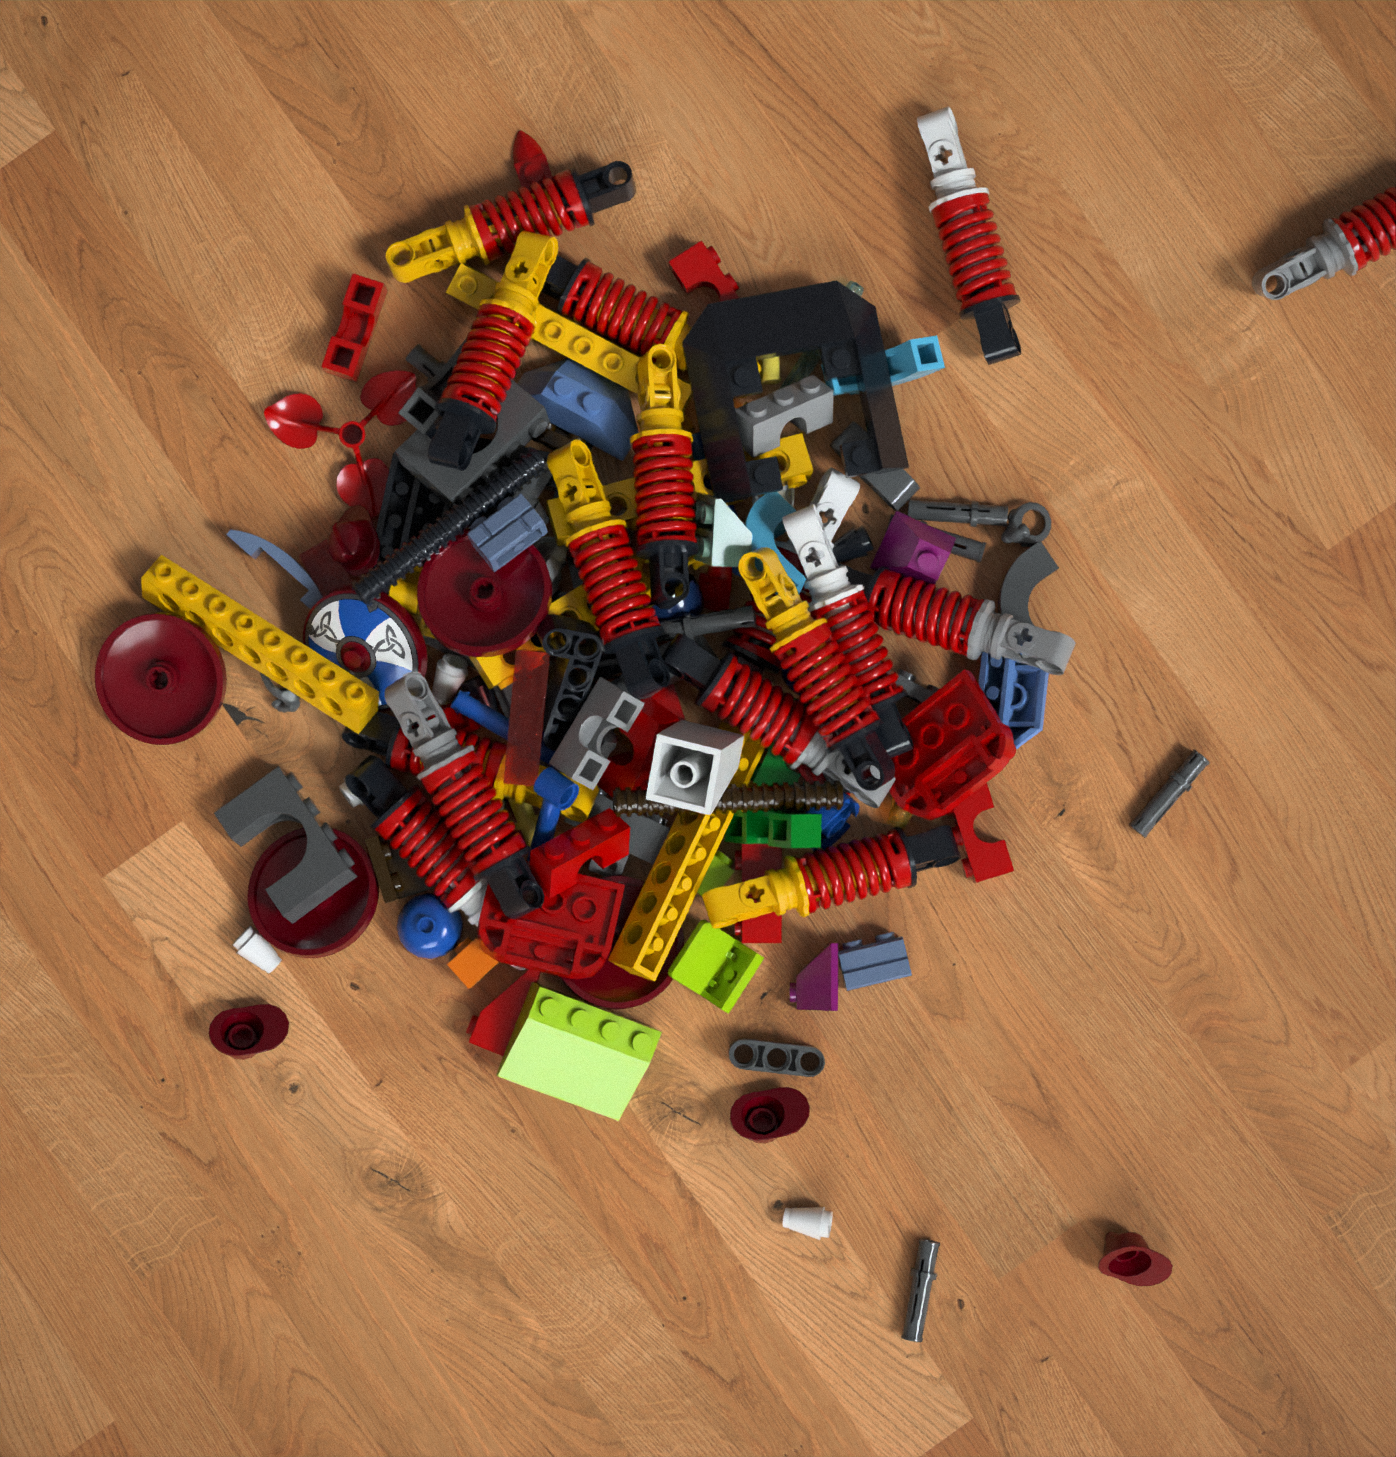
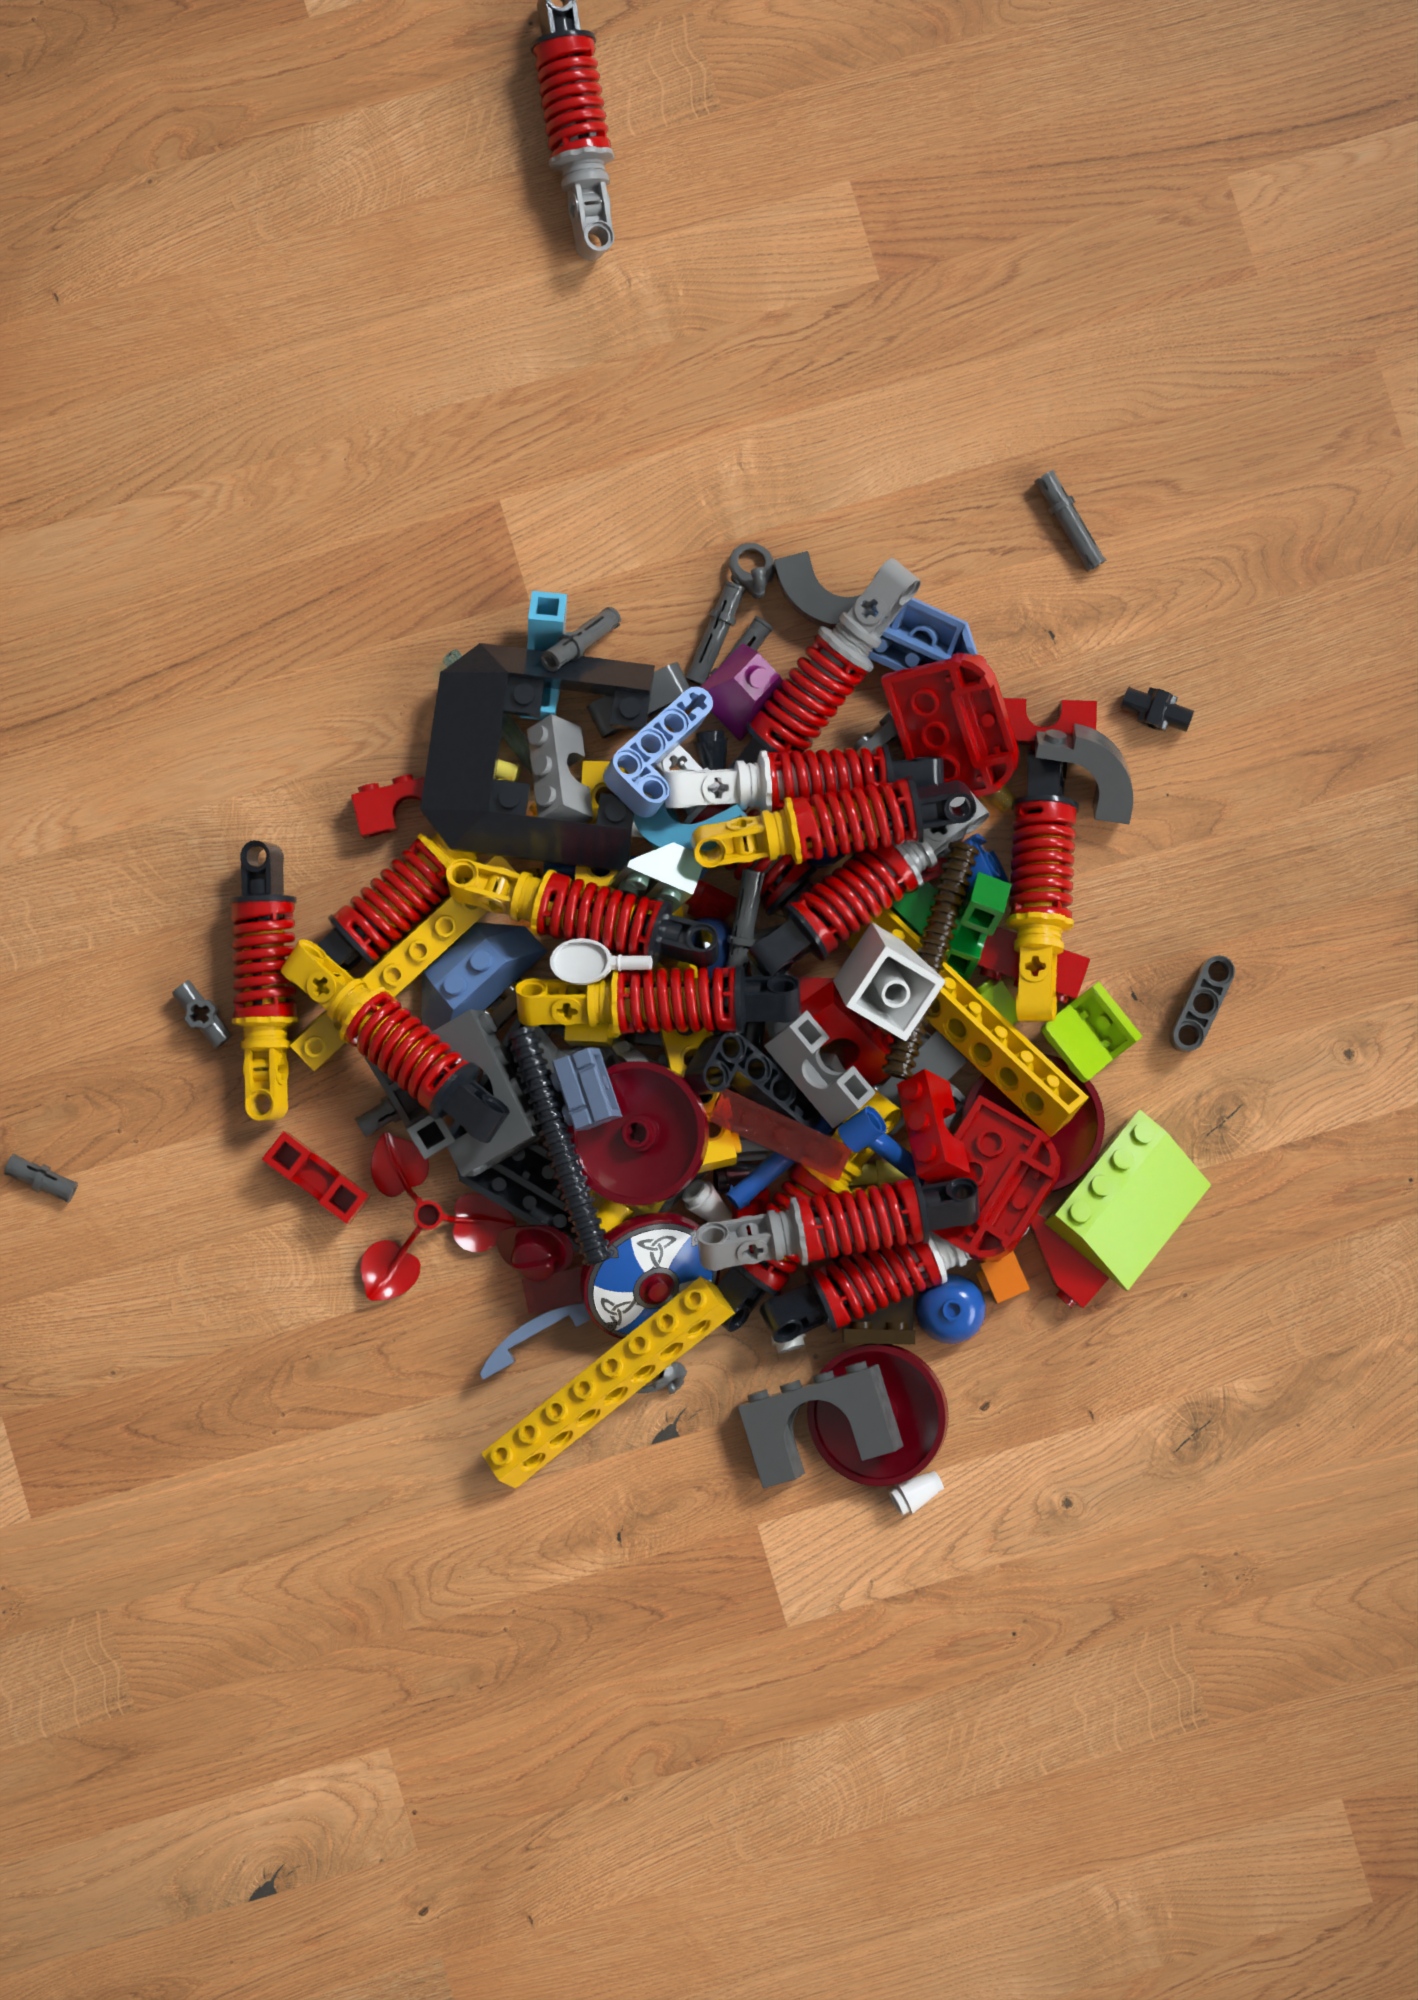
camera: 75 degrees left, 0 degrees up
(160, 678) = (606, 1496): dark red dish -> none
(248, 1030) = (995, 1527): dark red piece -> none
(273, 90) = (41, 1178): none -> dark grey pin
(456, 193) = (190, 1000): none -> dark grey axle
(529, 160) = (206, 942): red plate -> none
(620, 495) = (589, 961): none -> white piece
(769, 1114) = (1257, 1029): dark red piece -> none
(809, 1221) = (1376, 1028): white cone -> none
(817, 982) = (1141, 934): magenta slope -> none
(839, 495) = (661, 742): none -> light blue beam
(873, 962) = (1139, 873): sand blue brick -> none
(900, 387) = (572, 644): none -> dark grey pin
(963, 889) = (1102, 759): none -> dark grey arch
(968, 239) = (444, 527): piece -> none
(1026, 928) = (1157, 709): none -> black axle

